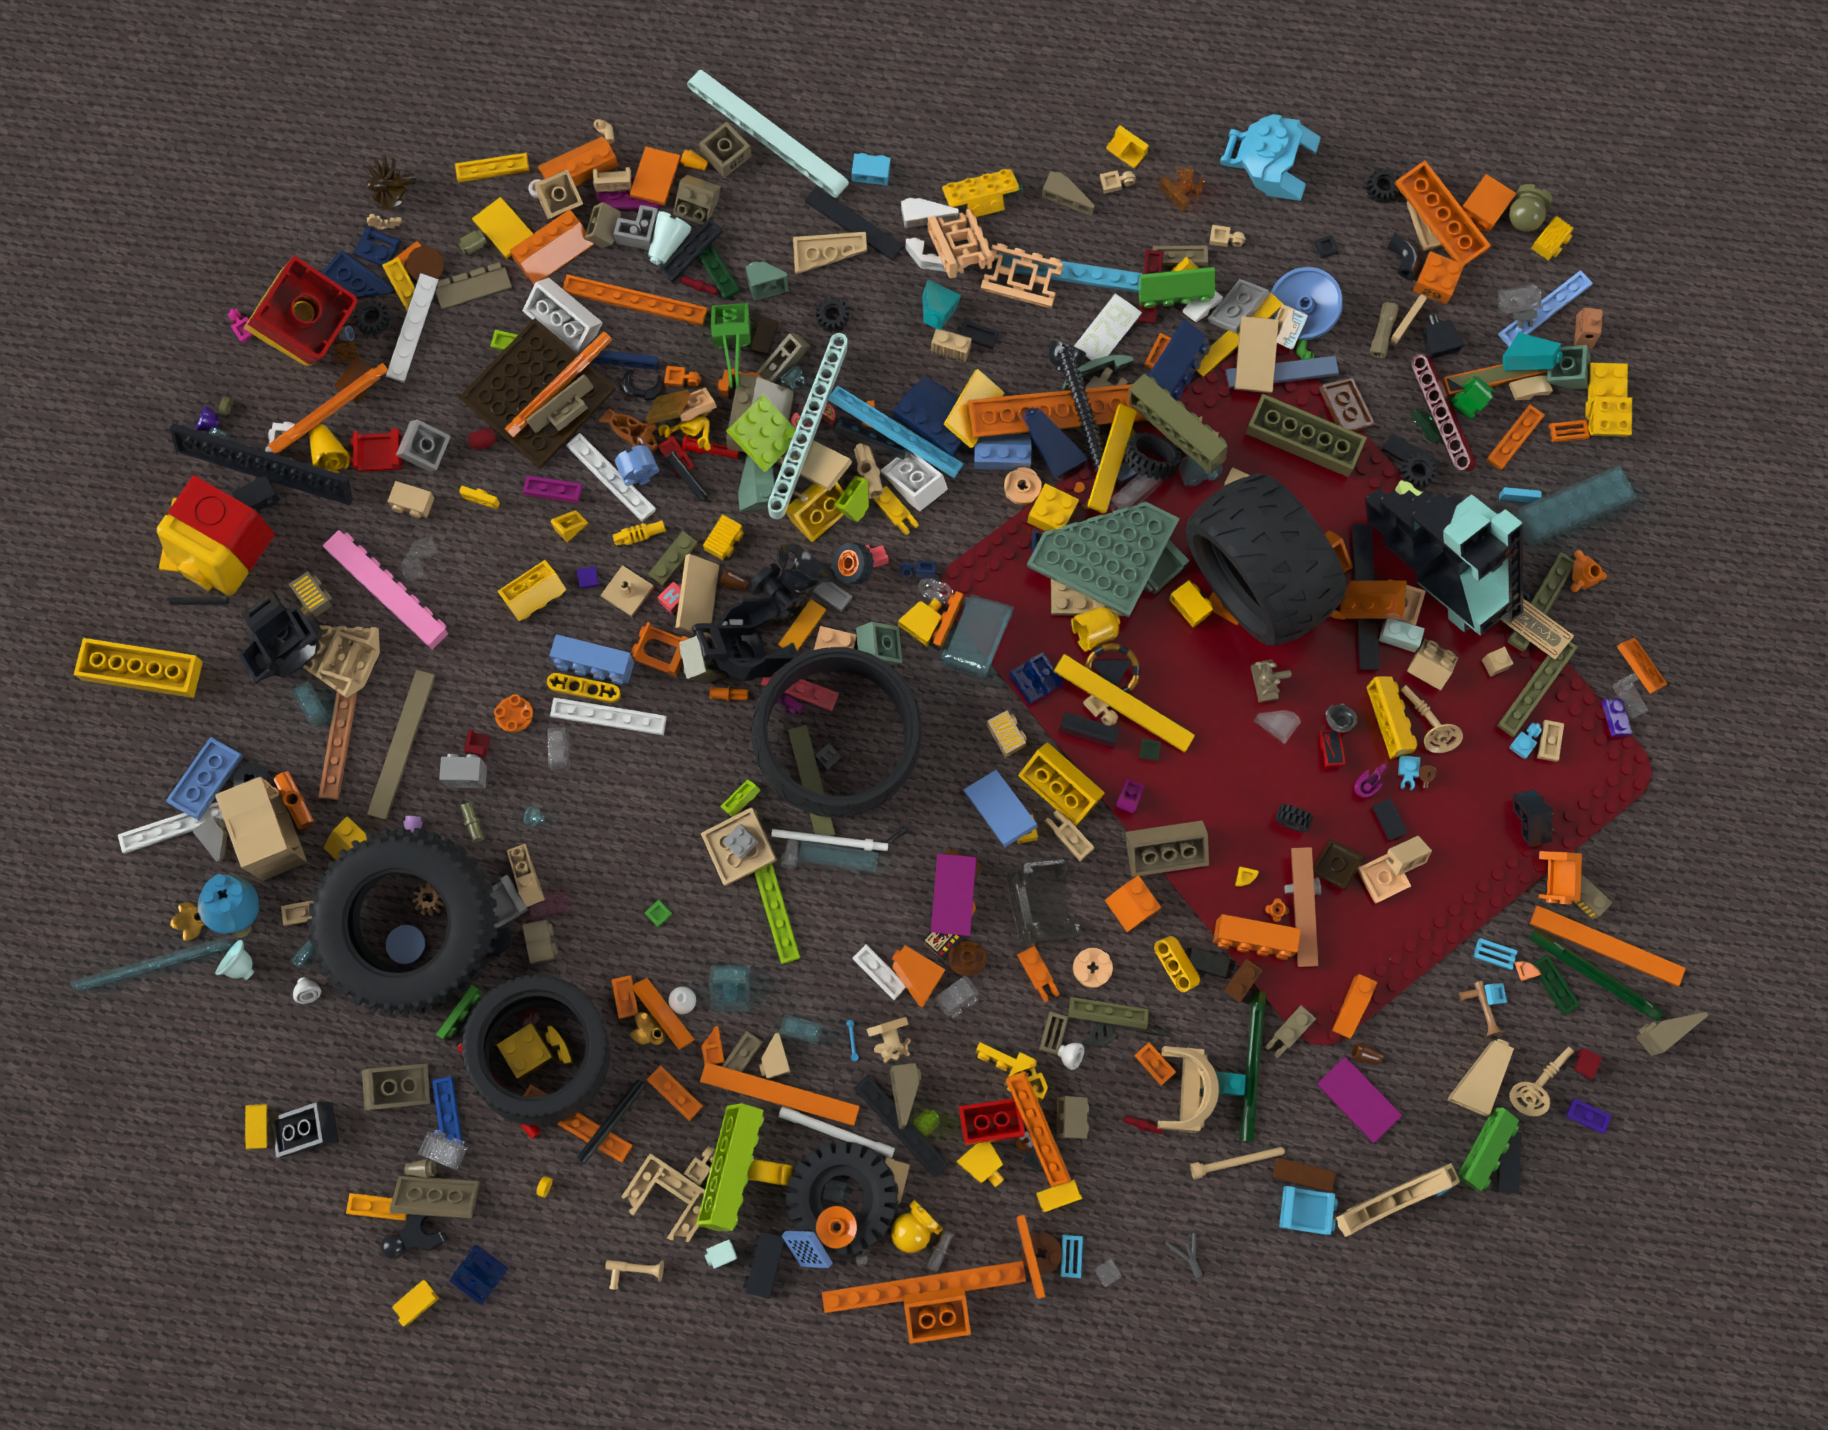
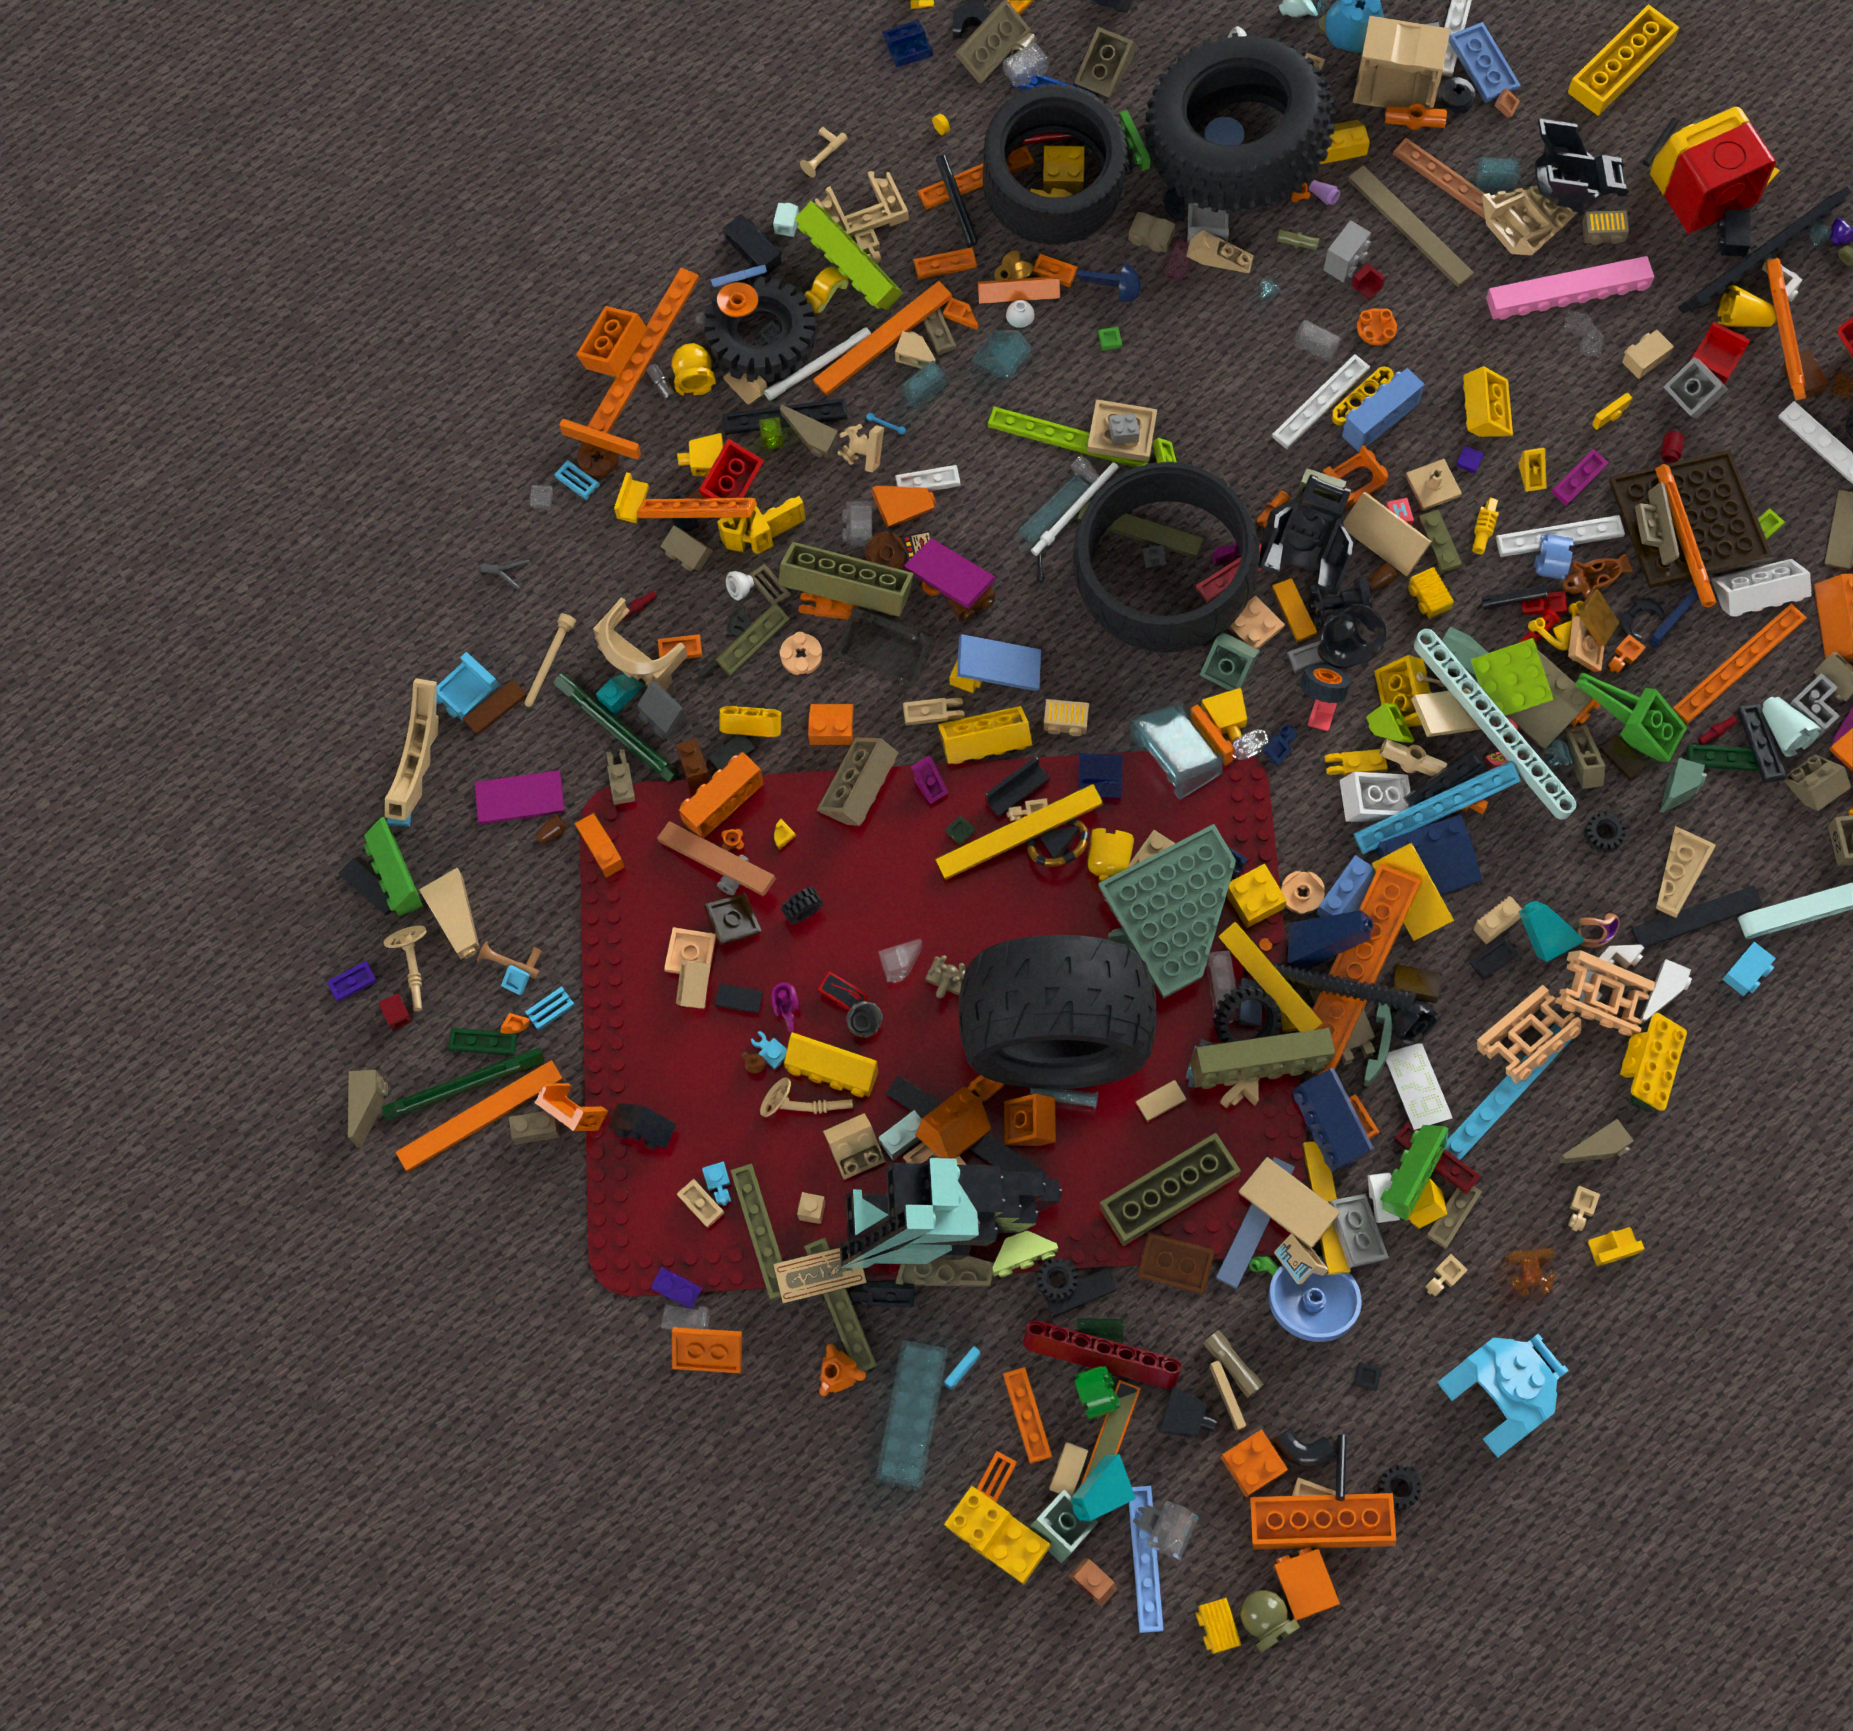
camera: 130 degrees right, 5 degrees down
(235, 737) = (1507, 103): none -> nougat tile
(602, 926) = (1127, 282): none -> dark blue piece
(901, 273) = (1609, 924): none -> nougat piece
(1014, 970) = (845, 579): none -> olive brick
(1038, 369) = (1421, 981): none -> dark brown tile
(1219, 1036) = (661, 711): none -> dark grey slope
(1406, 220) = (1341, 1467): none -> black bar

